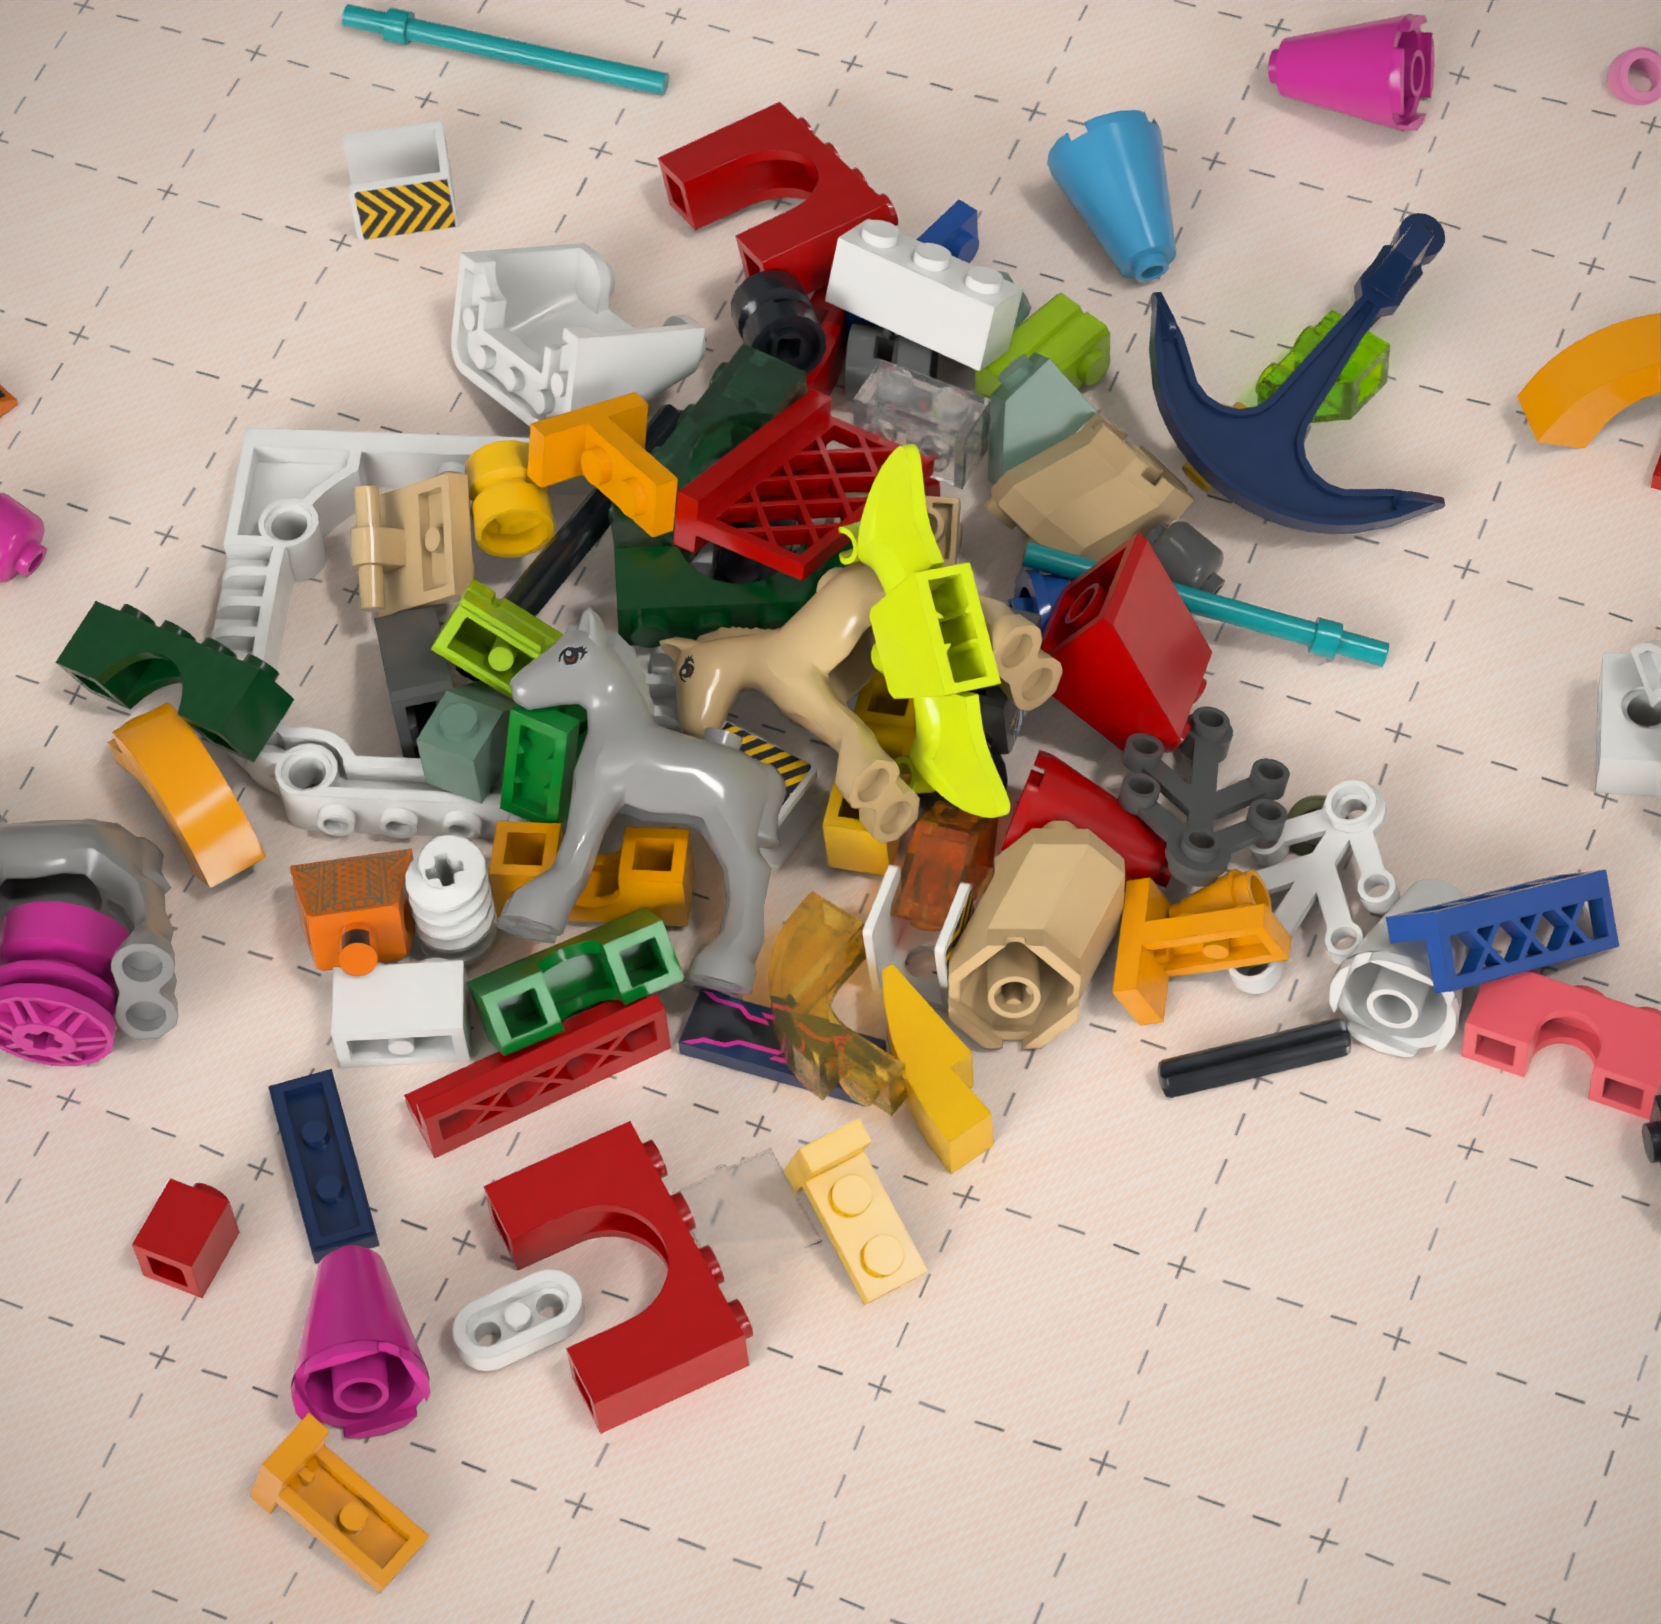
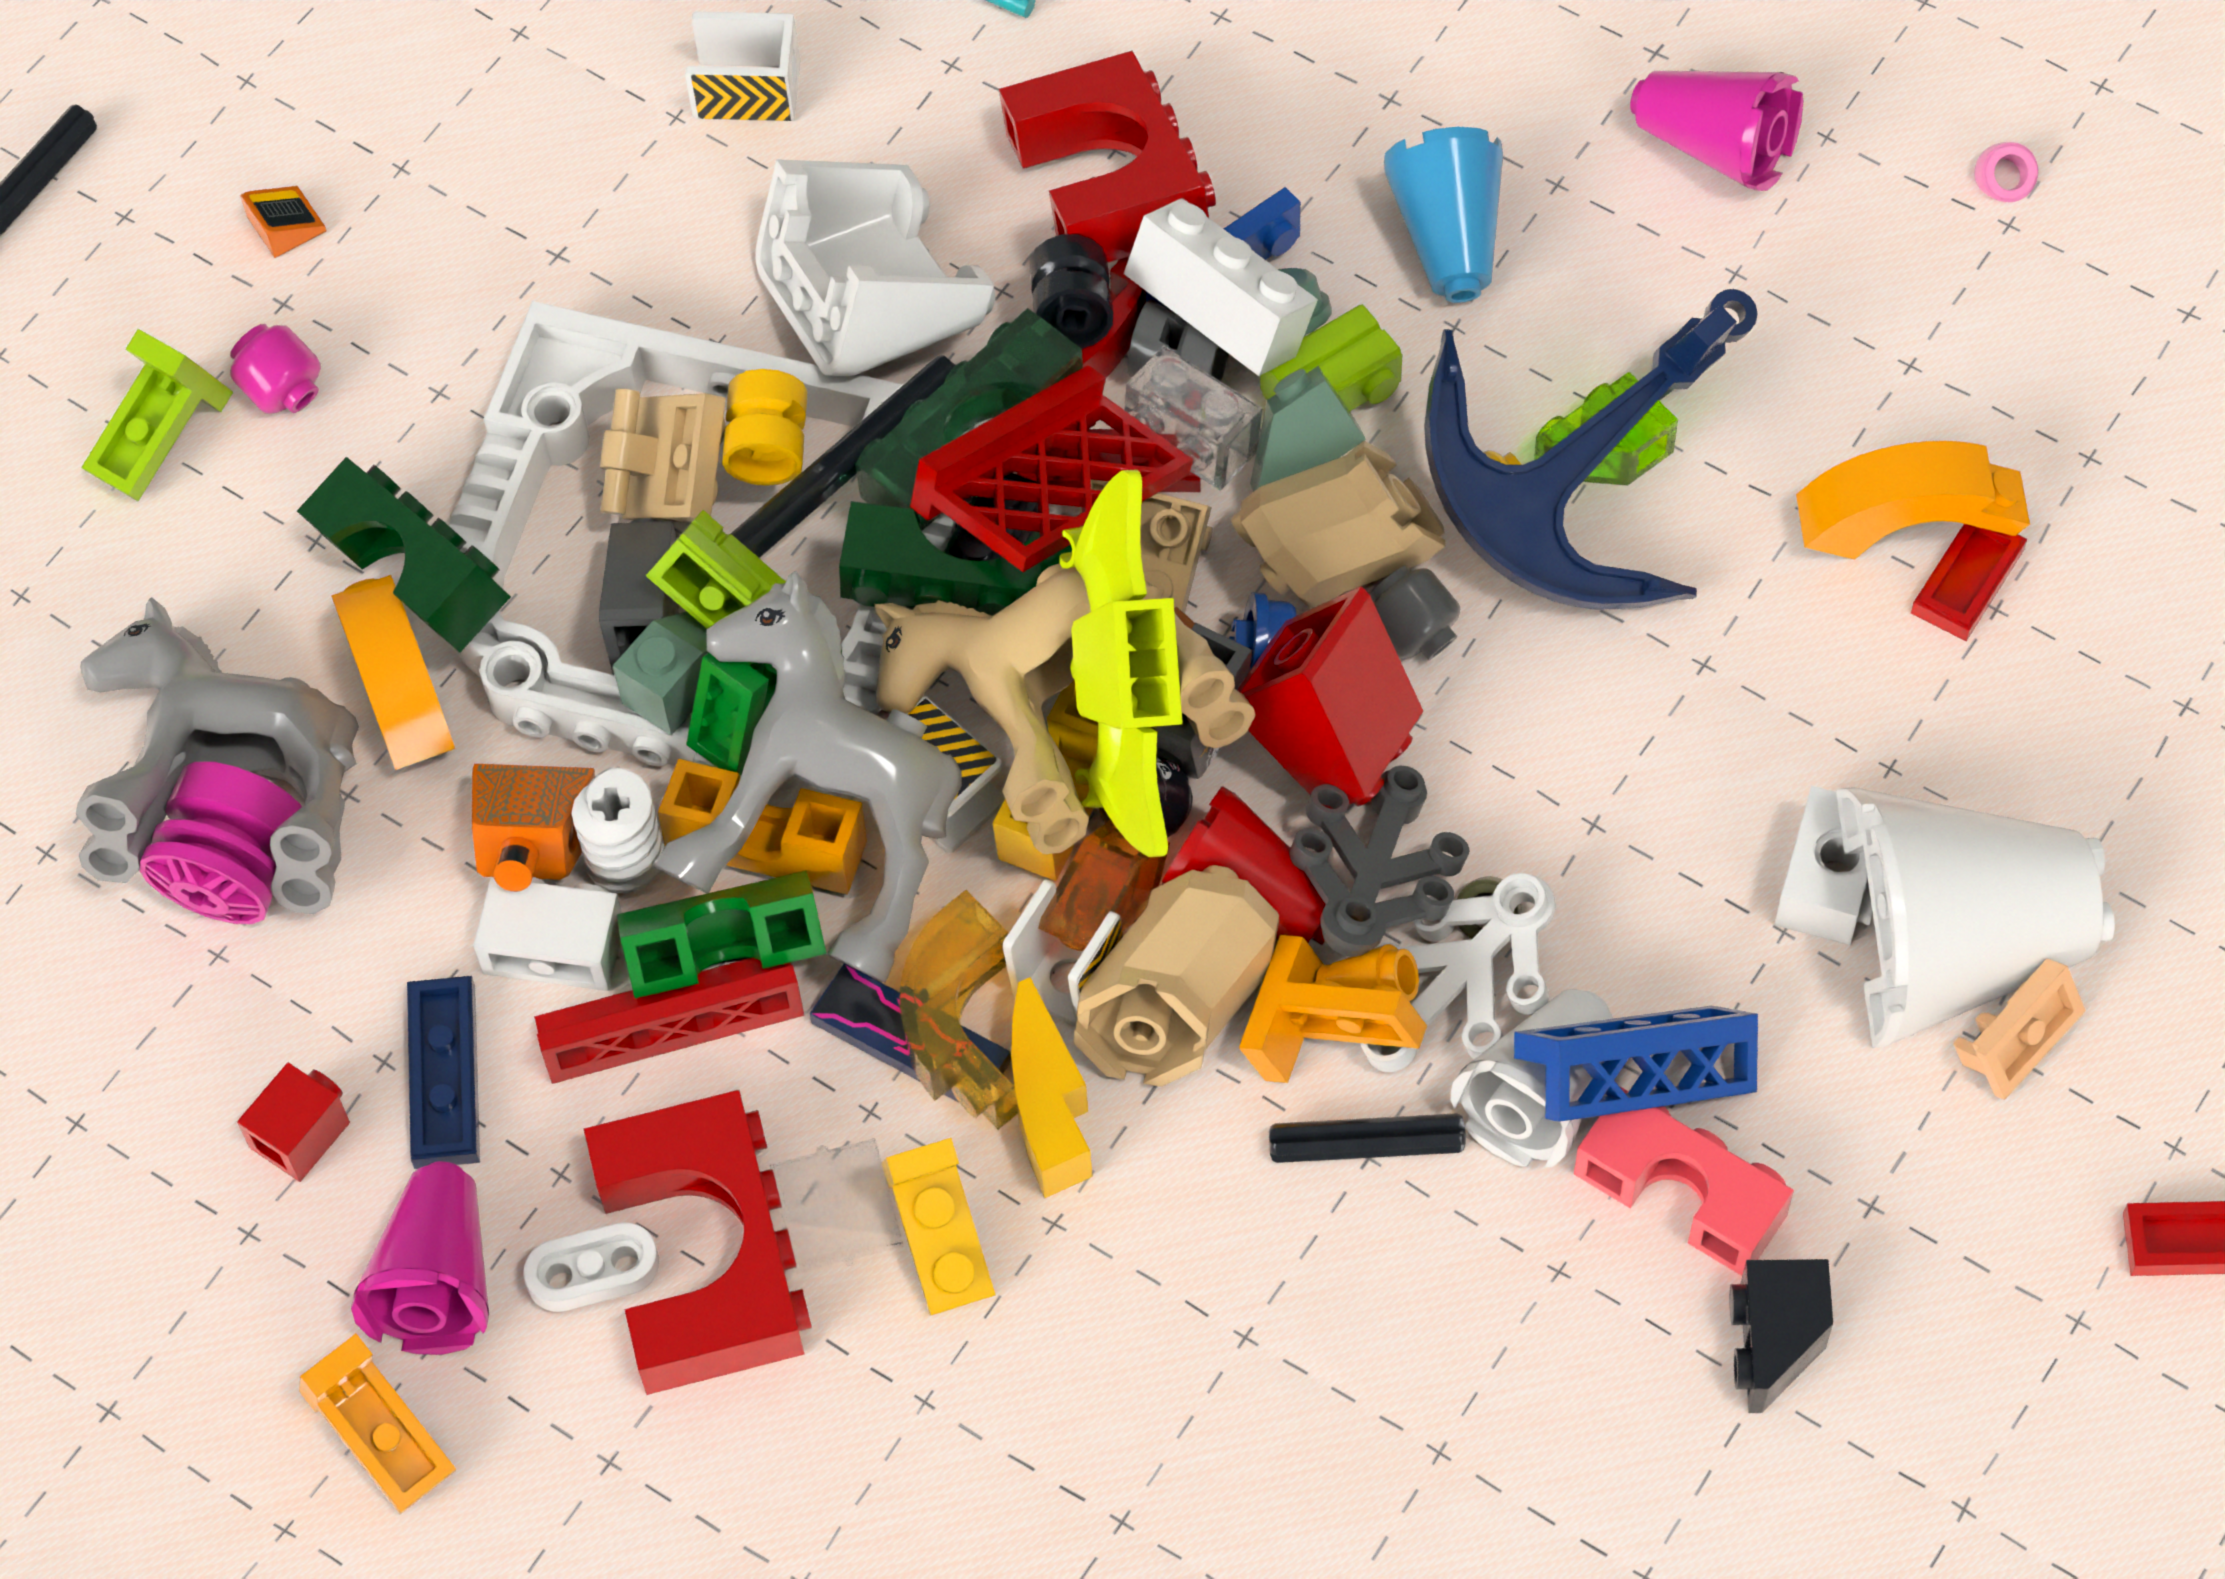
camera: 10 degrees right, 5 degrees up
(609, 450) = (864, 396): light orange bracket -> none
(1322, 637) = (1539, 713): teal bar -> none

